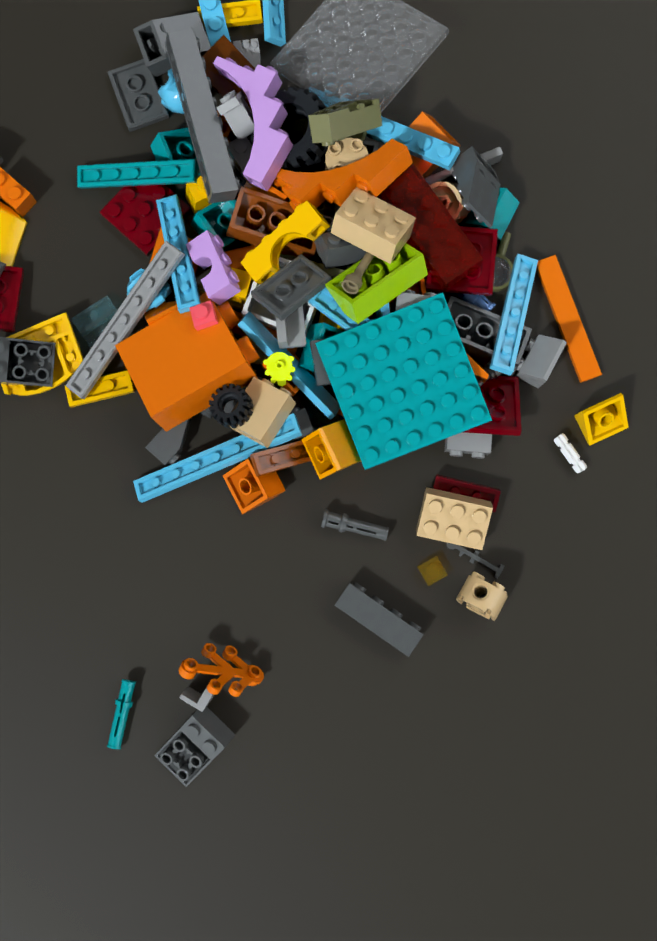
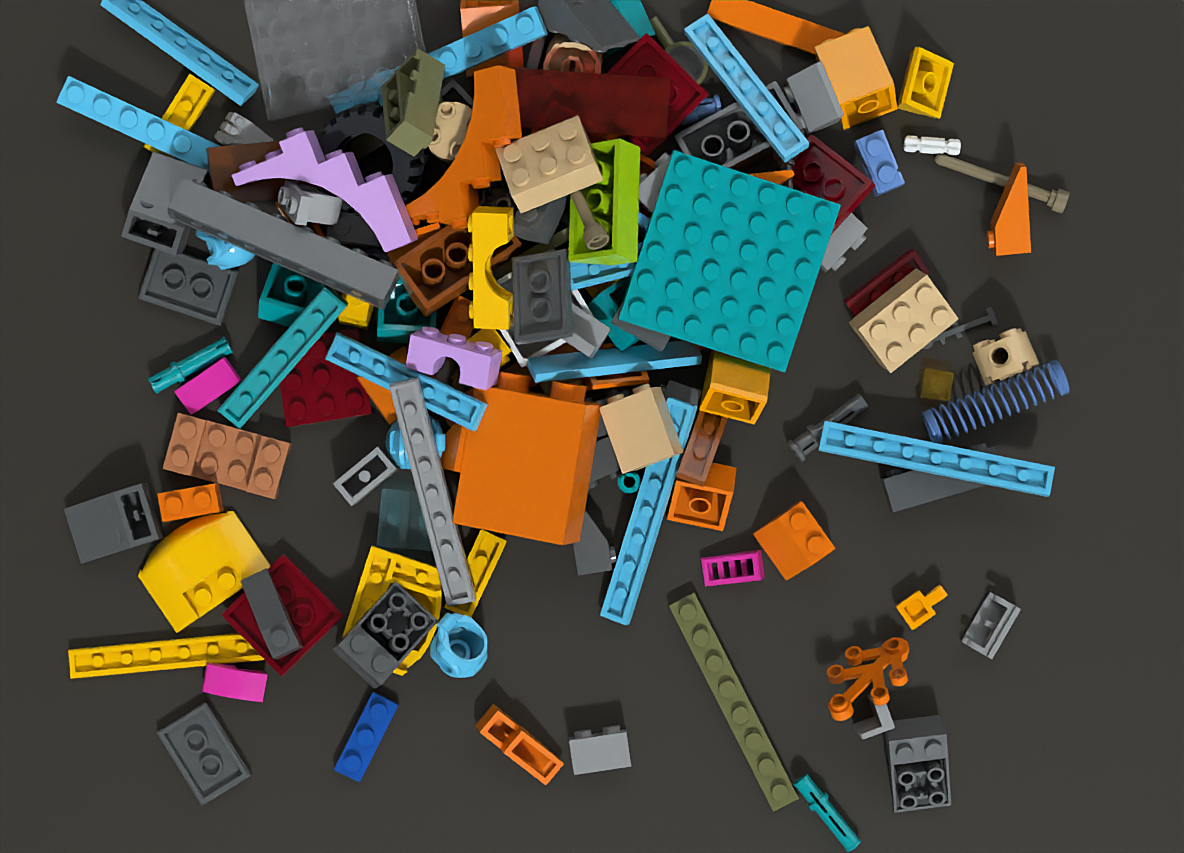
camera: 40 degrees left, 5 degrees up
(17, 495) = (519, 744): none -> orange slope
(47, 411) = (457, 649): none -> medium azure helmet
(50, 545) = (599, 750): none -> light grey piece
(55, 191) = (226, 455): none -> nougat piece
(84, 127) = (180, 370): none -> teal pin
(87, 148) = (208, 385): none -> dark pink slope
(105, 277) = (365, 476): none -> light grey brick
(144, 603) = (733, 701): none -> olive plate
(203, 315) = (499, 409): coral plate -> none
(223, 397) = (630, 455): black tyre -> none
(224, 437) = (629, 489): none -> teal pin
(237, 551) = (758, 567): none -> dark pink slope
(270, 560) = (794, 540): none -> orange slope
(279, 367) = (612, 374): neon yellow piece -> none
(290, 668) = (918, 608): none -> light orange plate
(314, 721) = (990, 625): none -> light grey hinge
(388, 605) = (937, 459): none -> medium azure plate
(497, 637) = (1058, 378): none -> medium blue piece
(534, 429) = (878, 162): none -> medium blue brick
(567, 534) = (1010, 221): none -> orange slope
(573, 376) = (858, 76): none -> light orange slope
(599, 551) = (1055, 198): none -> dark tan piece

